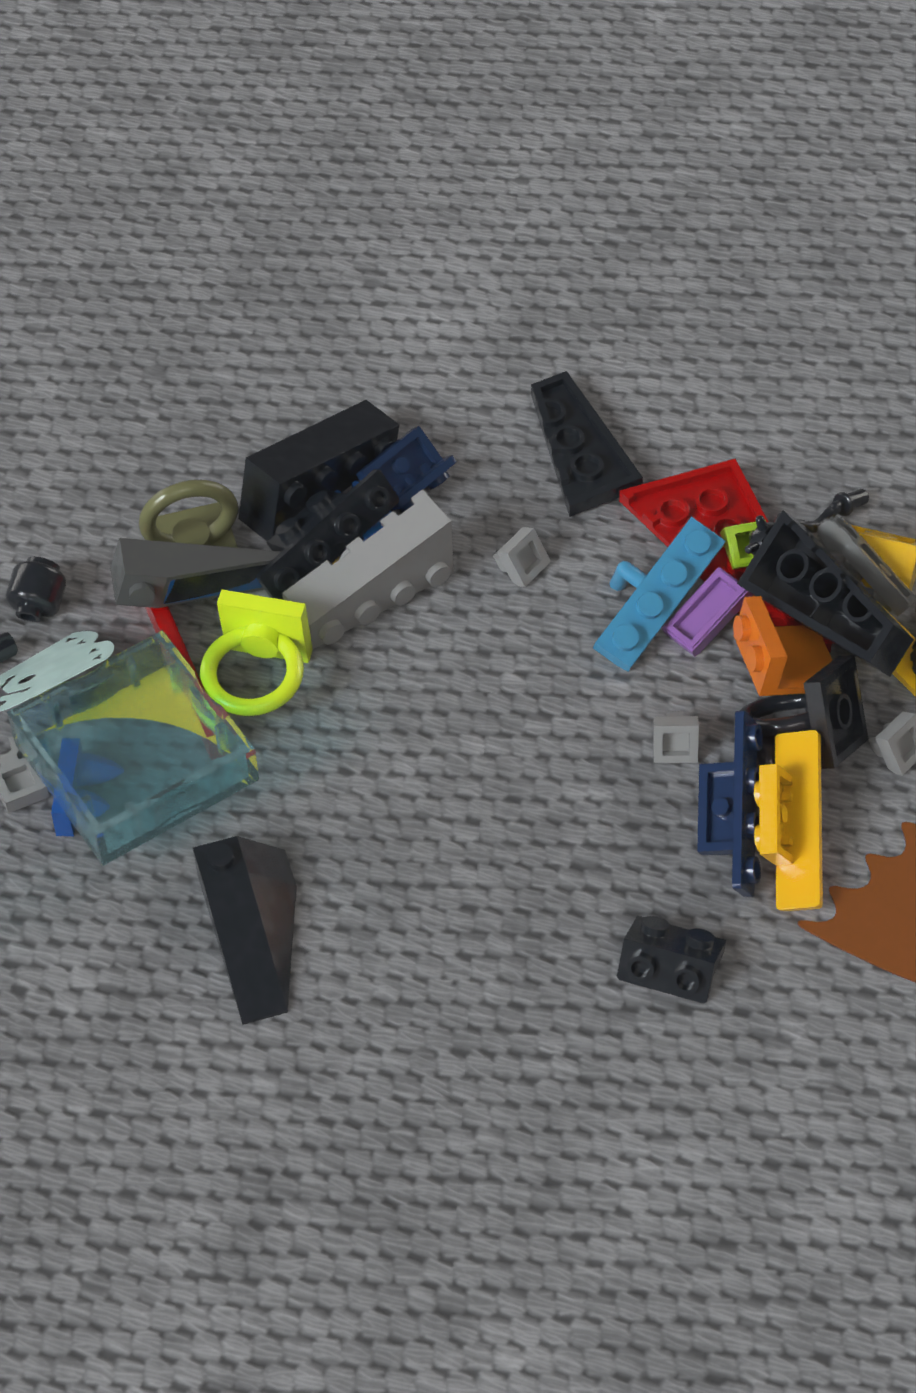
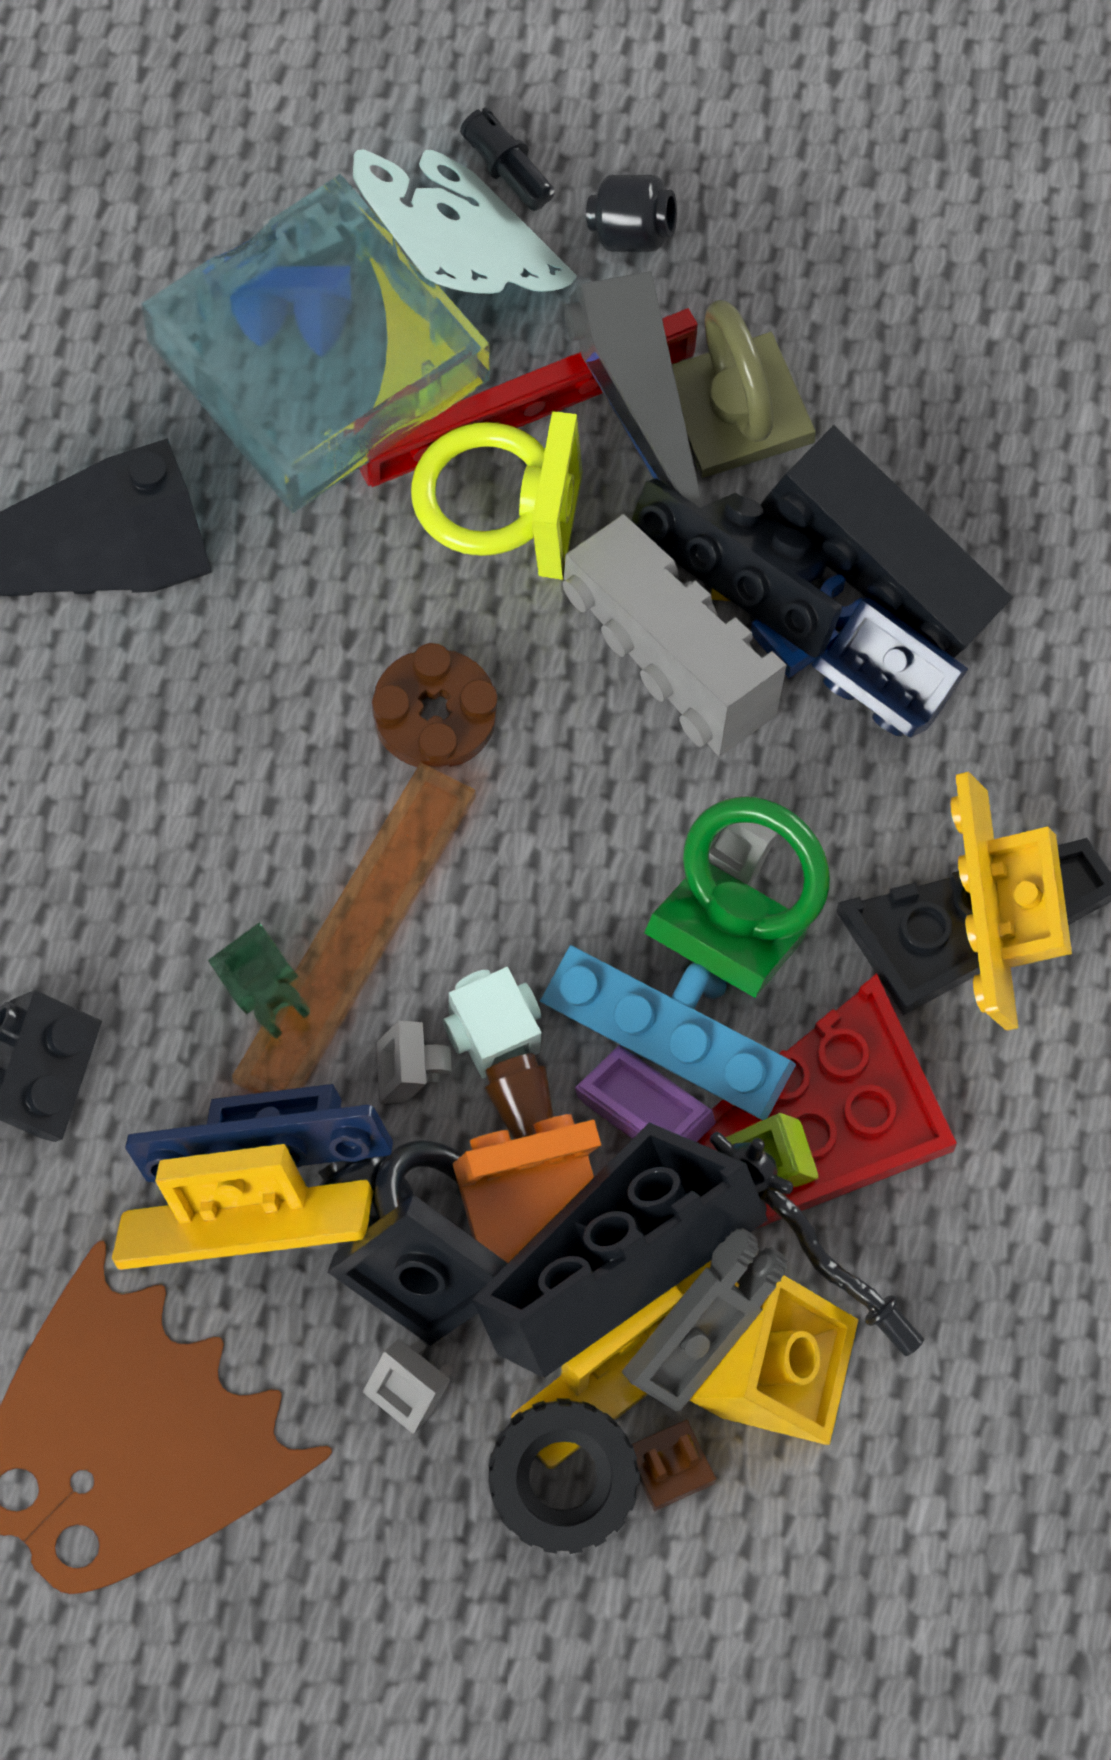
camera: 80 degrees right, 15 degrees up
(407, 698) = (434, 673): none -> reddish brown plate
(577, 770) = (358, 930): none -> clear orange tile
(578, 408) = (1013, 899): none -> yellow bracket
(590, 552) = (727, 922): none -> green tile
(607, 819) = (259, 977): none -> clear green plate
(646, 688) = (492, 1018): none -> light aqua brick
(700, 678) = (520, 1093): none -> reddish brown cone

